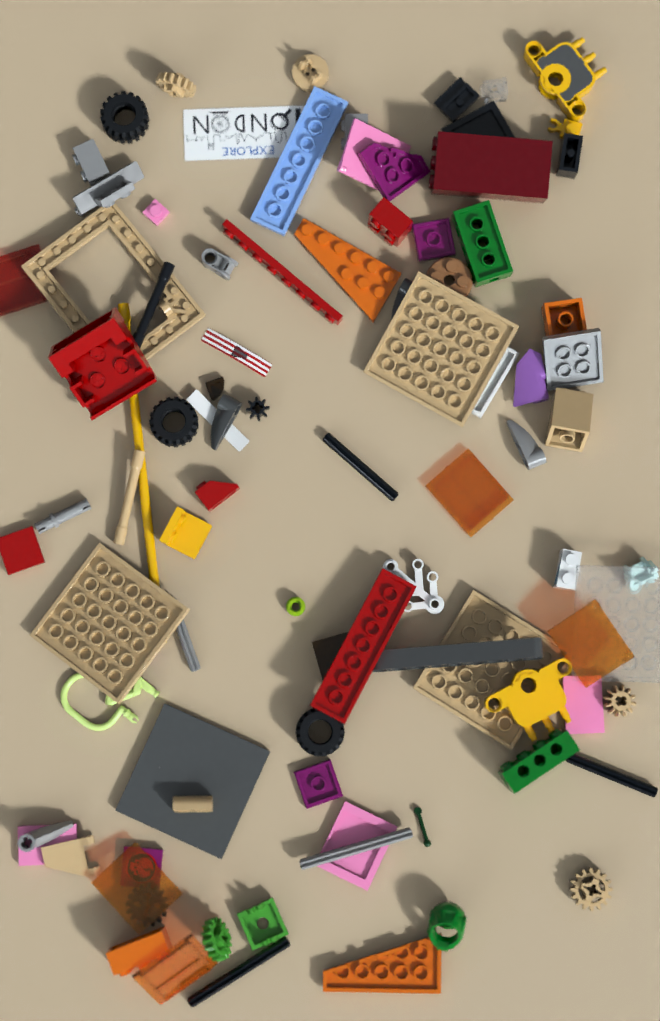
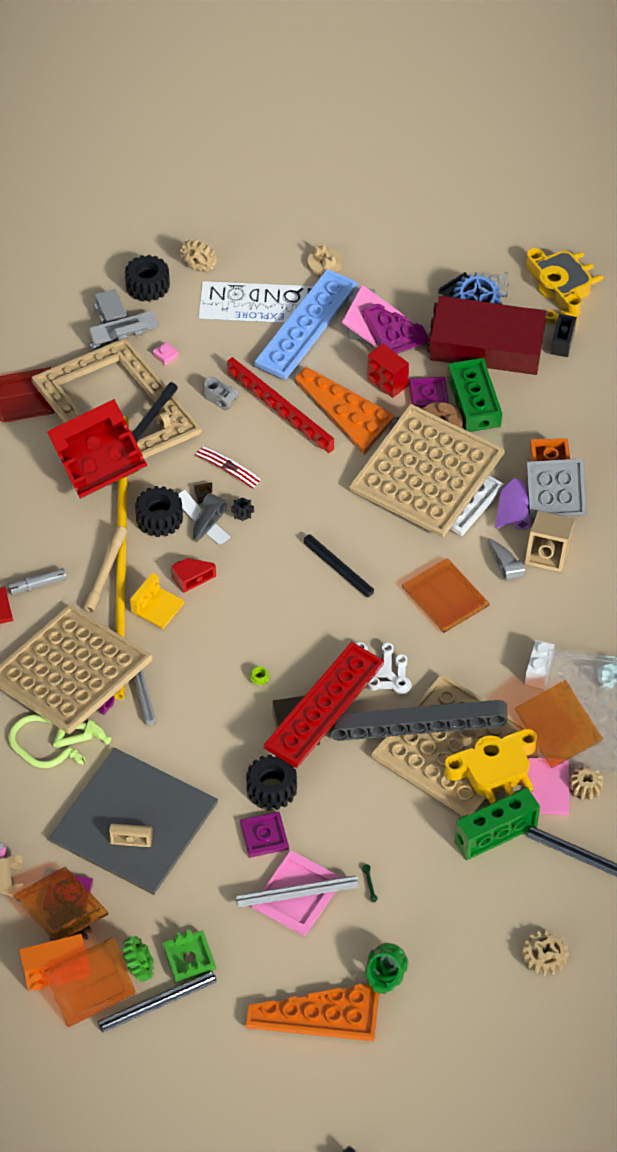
camera: 10 degrees right, 30 degrees down
(478, 122) = (491, 292): none -> medium blue gear

